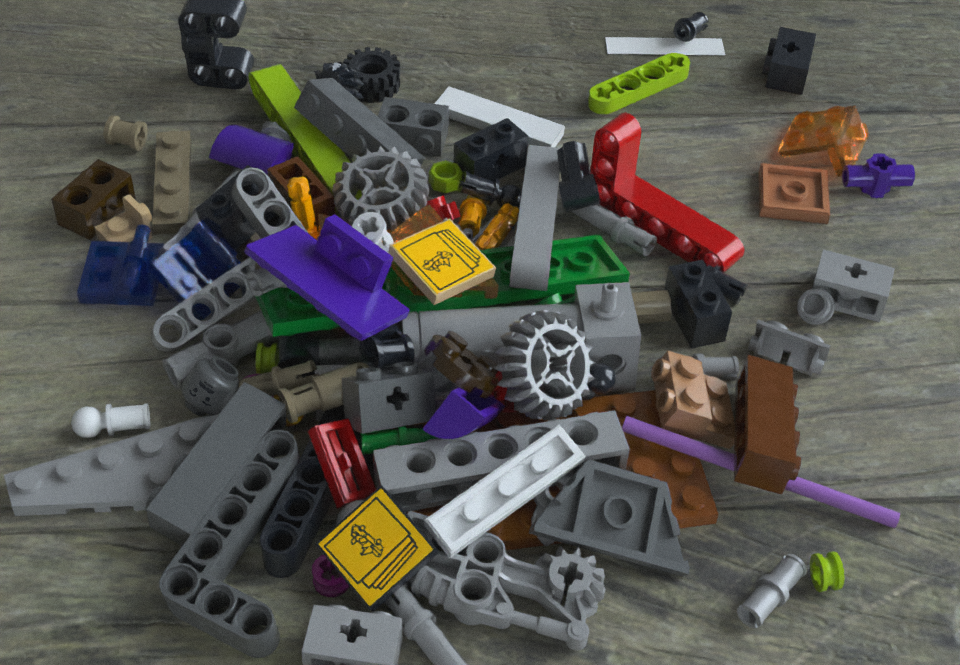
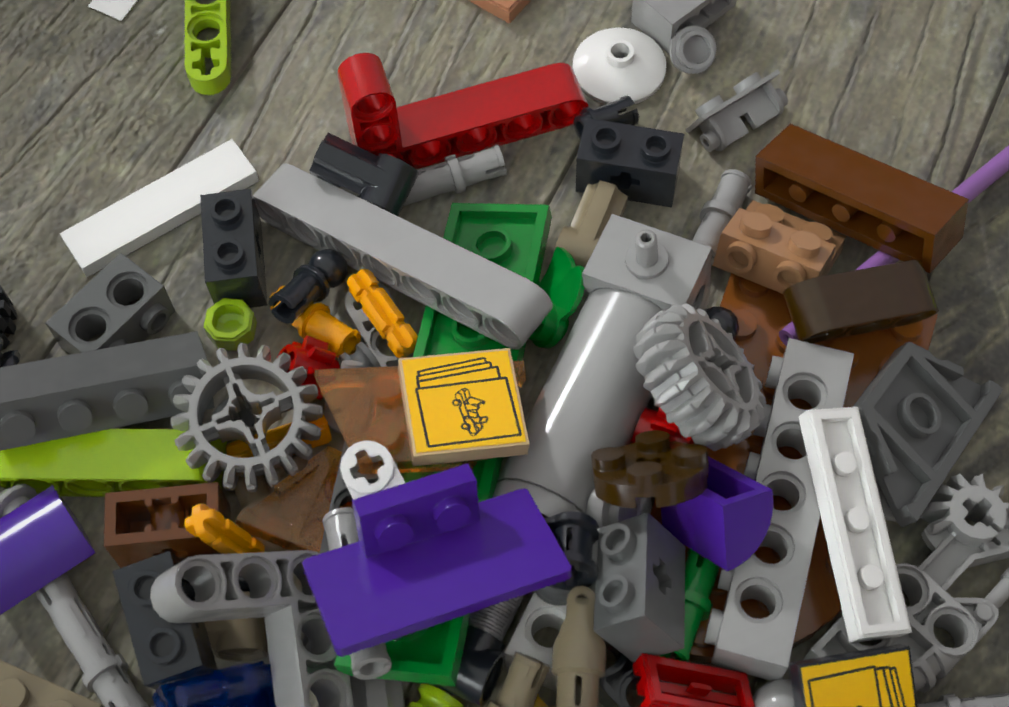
camera: 55 degrees left, 15 degrees up
(677, 445) = (860, 301): none -> dark brown beam
(774, 280) = (610, 78): none -> white dish

